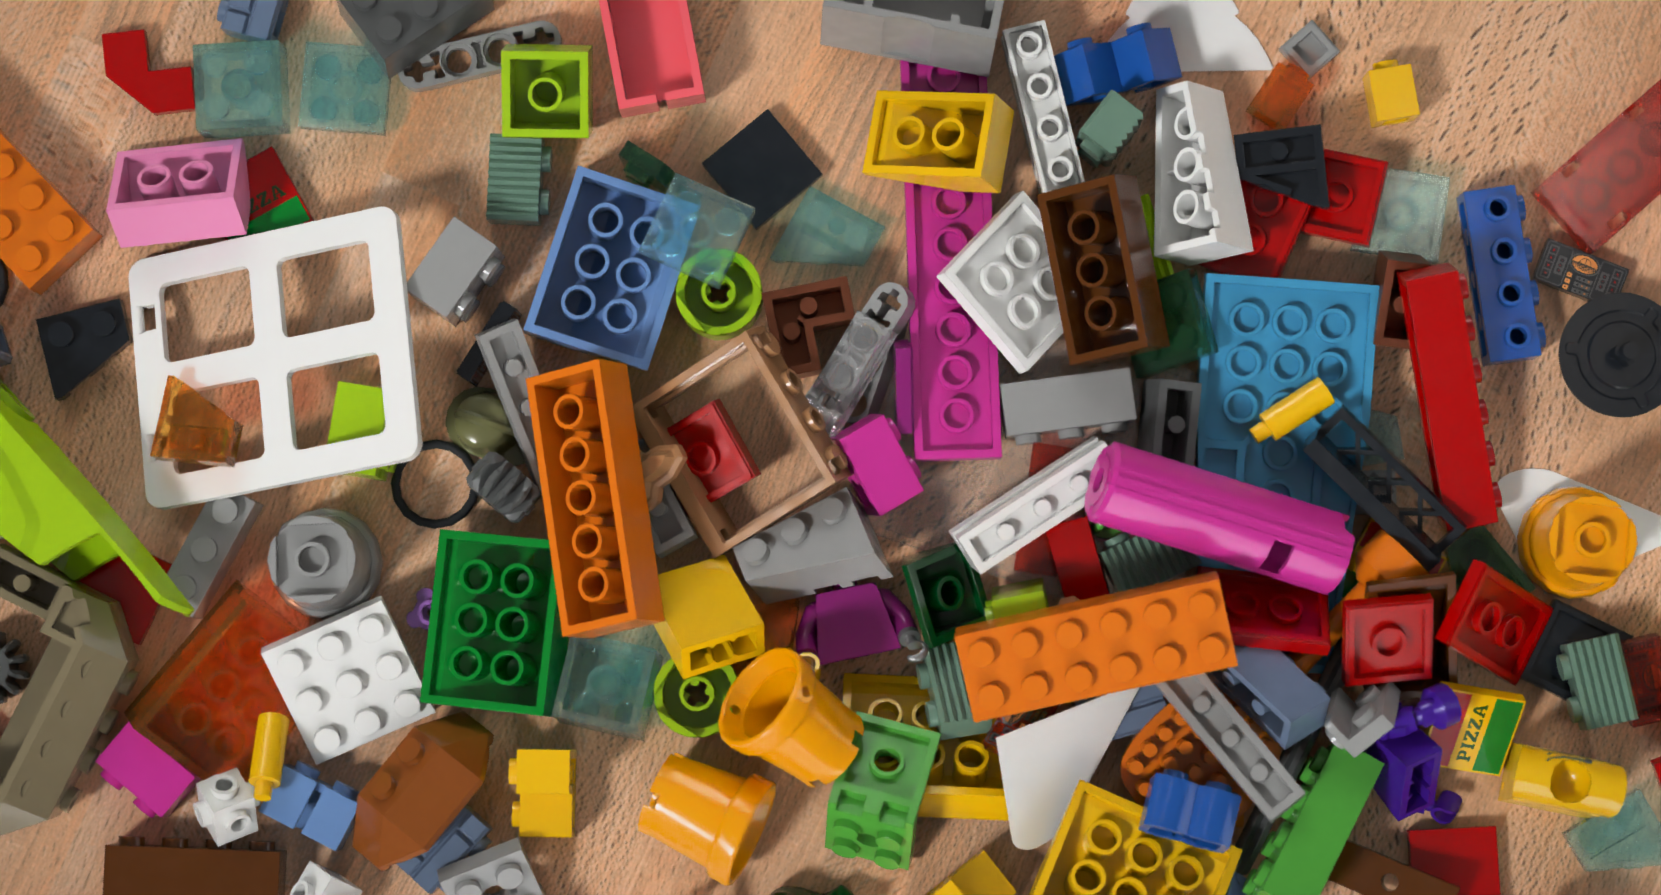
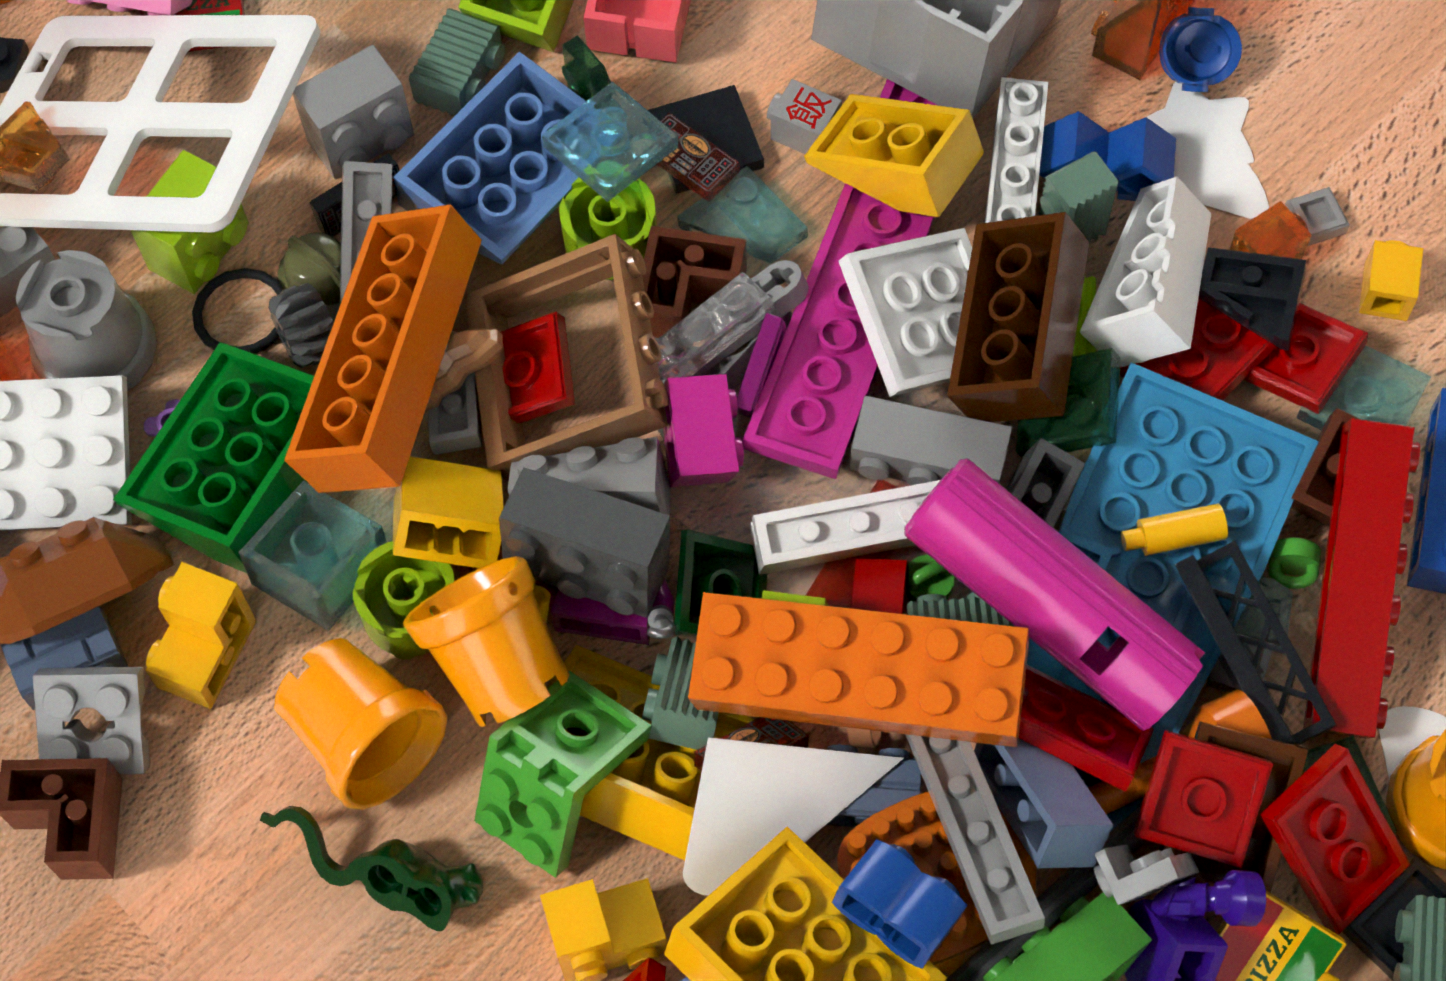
camera: 20 degrees right, 20 degrees down
(775, 204) = (698, 161): none -> tile
(833, 612) = (587, 542): none -> dark grey brick
(841, 122) = (800, 115): none -> light grey brick
(1389, 382) = (1295, 557): none -> bright green tile

